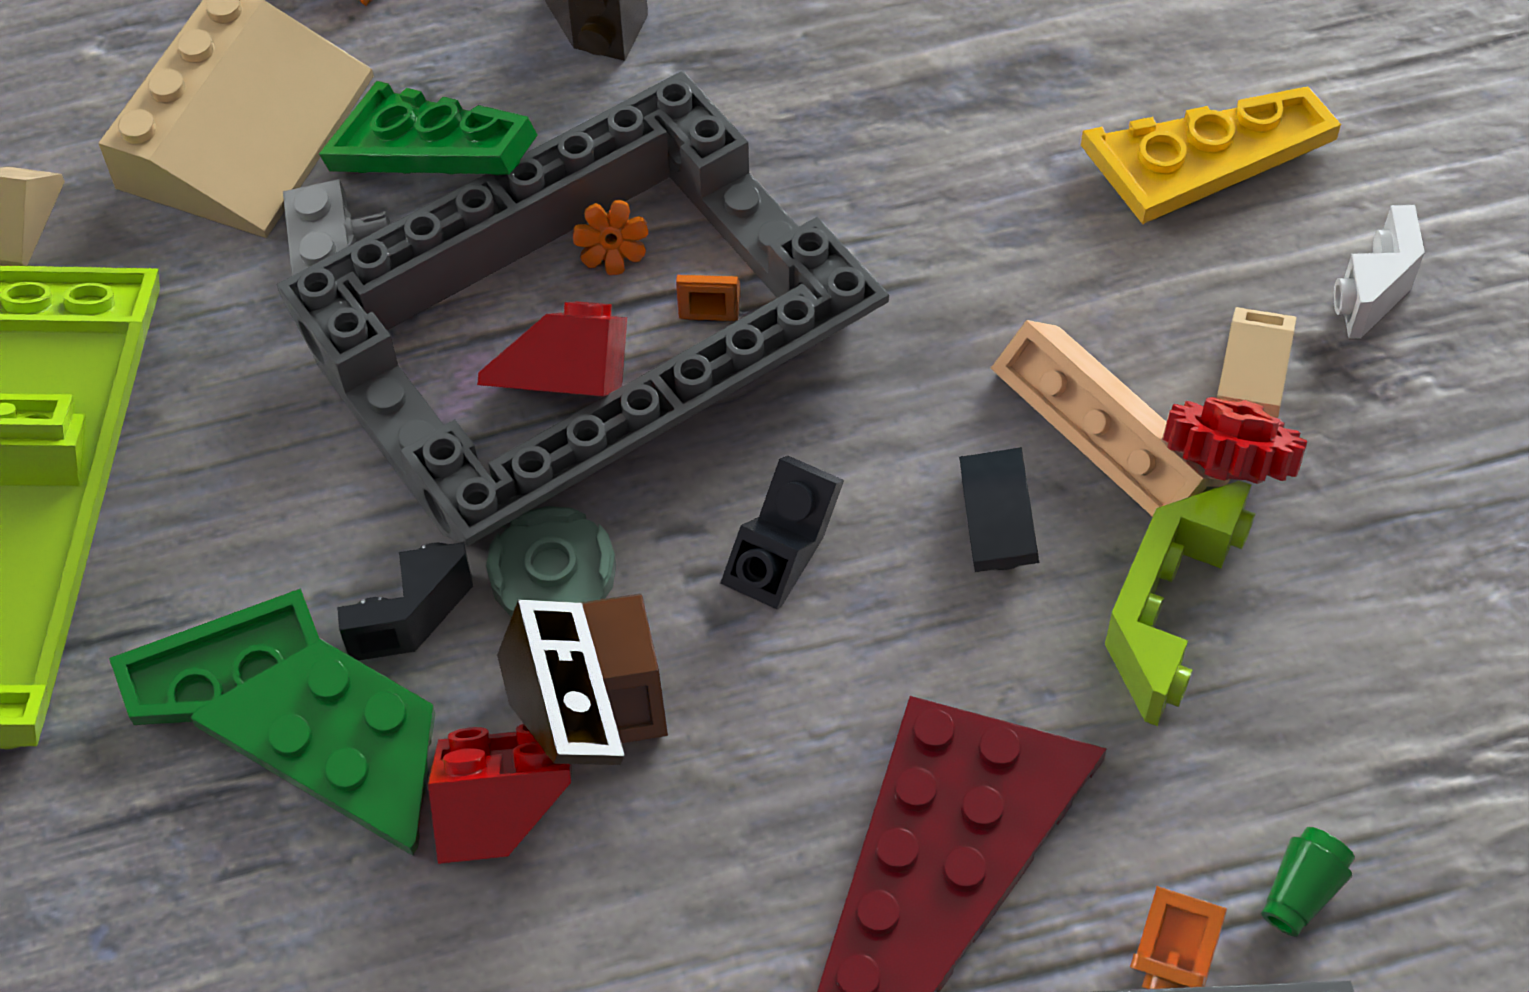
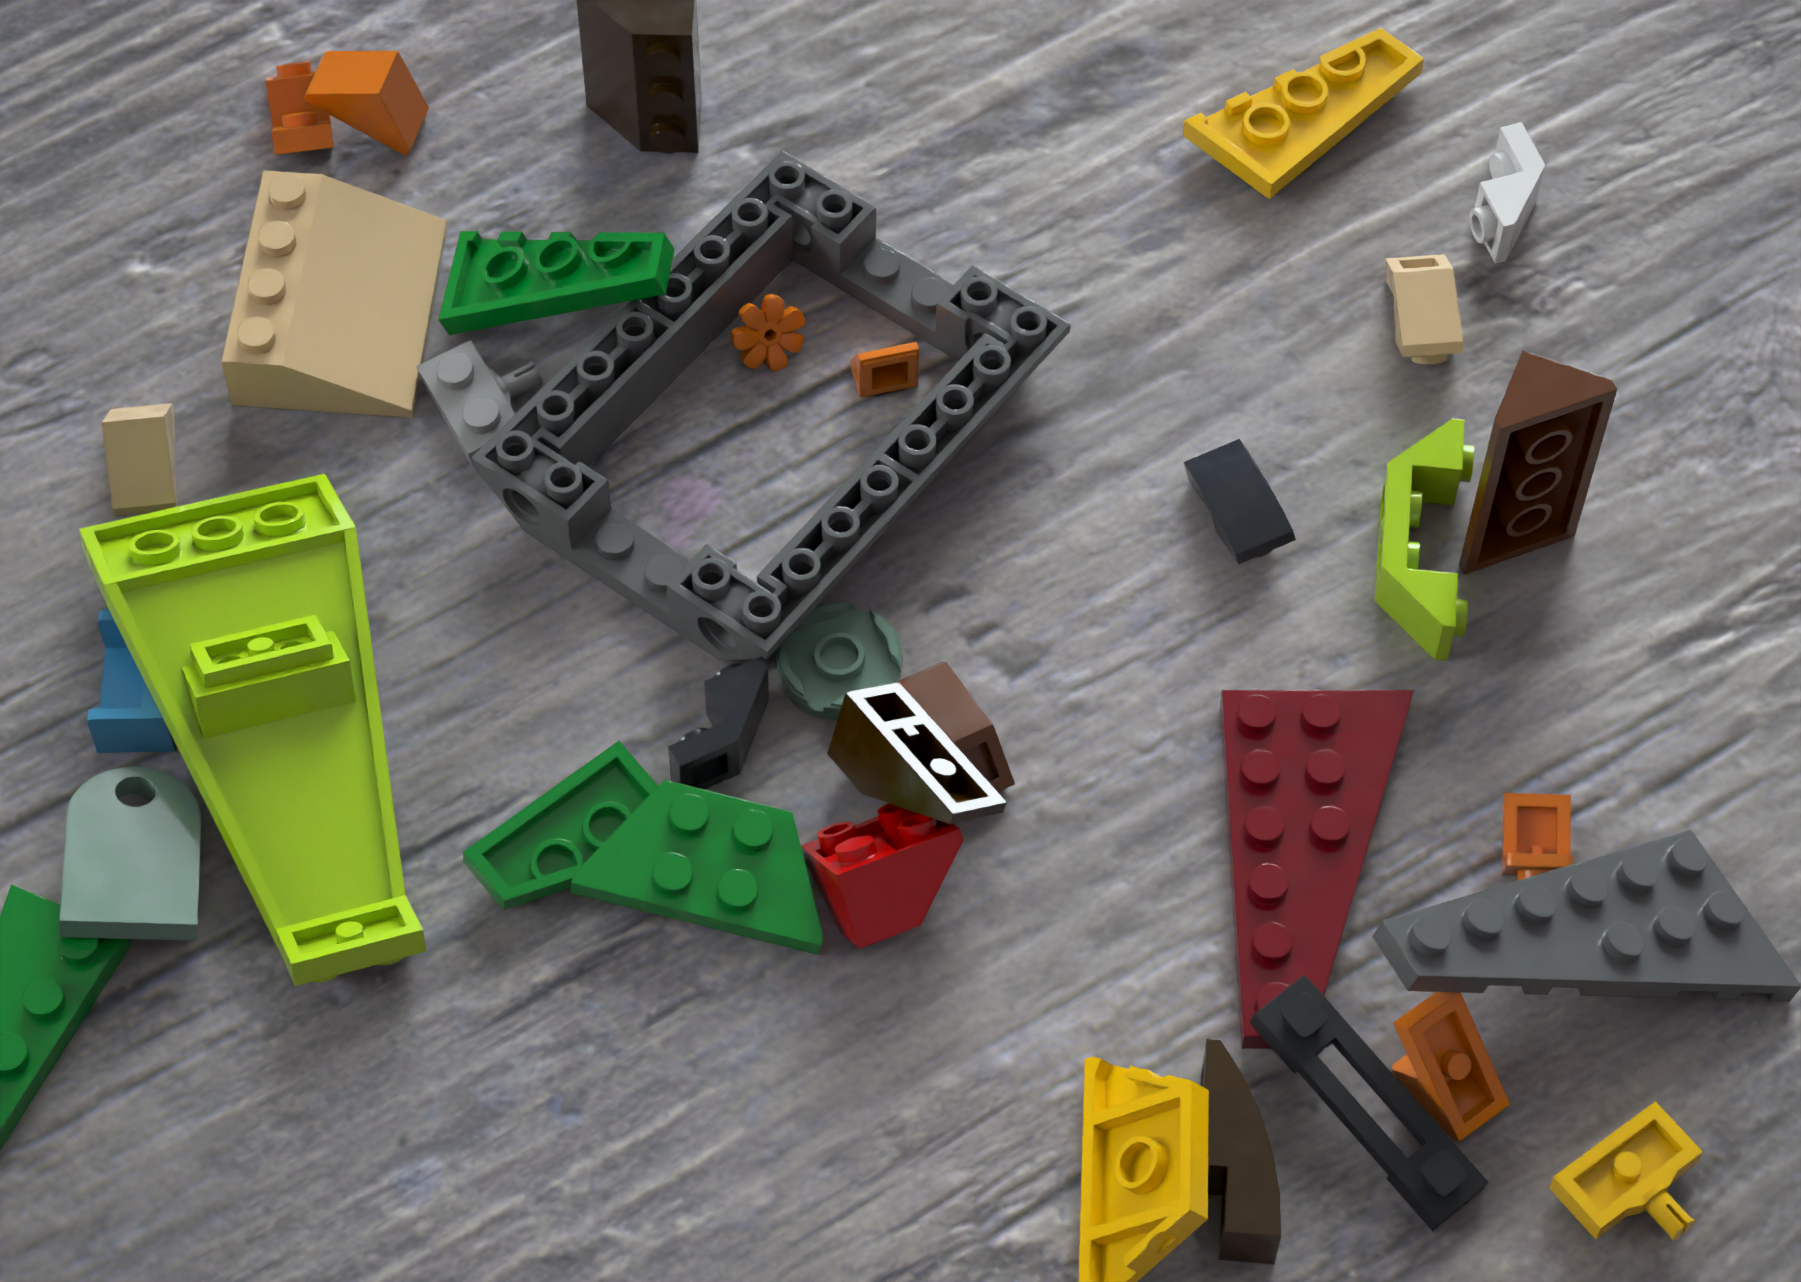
camera: 20 degrees left, 0 degrees up
(564, 353) = (785, 455): red slope -> none
(781, 541) = (1047, 573): black slope -> none
(1099, 416) = (1302, 394): light nougat panel -> none
(1234, 440) = (1437, 382): red gear -> none
(1297, 543) = (1537, 461): none -> reddish brown slope
(1307, 879) = (1626, 754): green cone -> none

